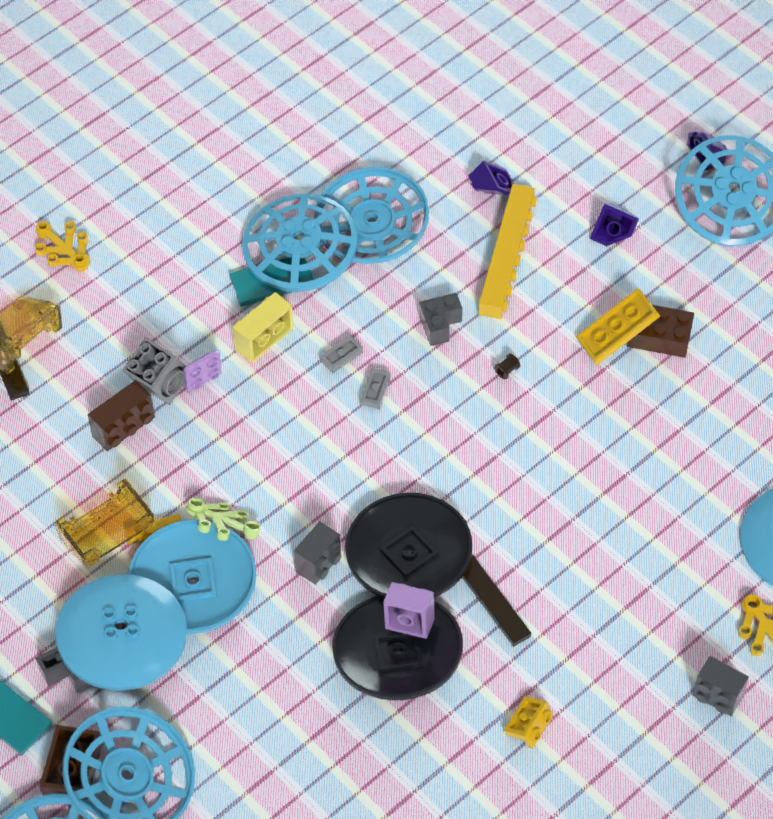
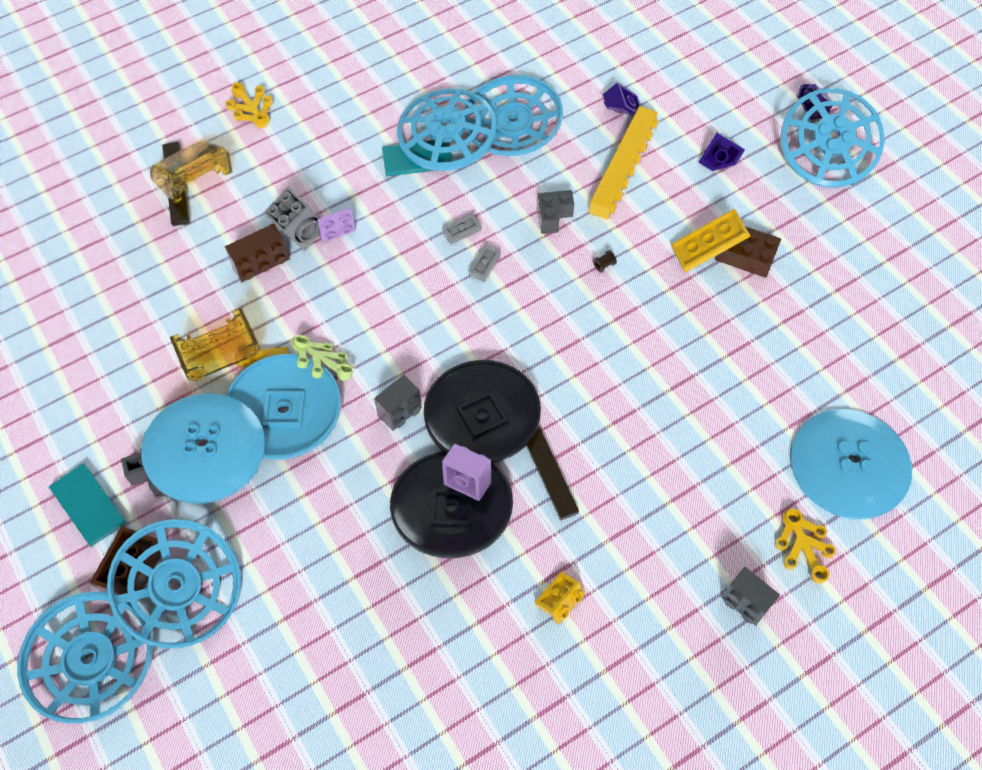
camera: 10 degrees right, 5 degrees up
(263, 327) = (397, 195): light yellow brick -> none

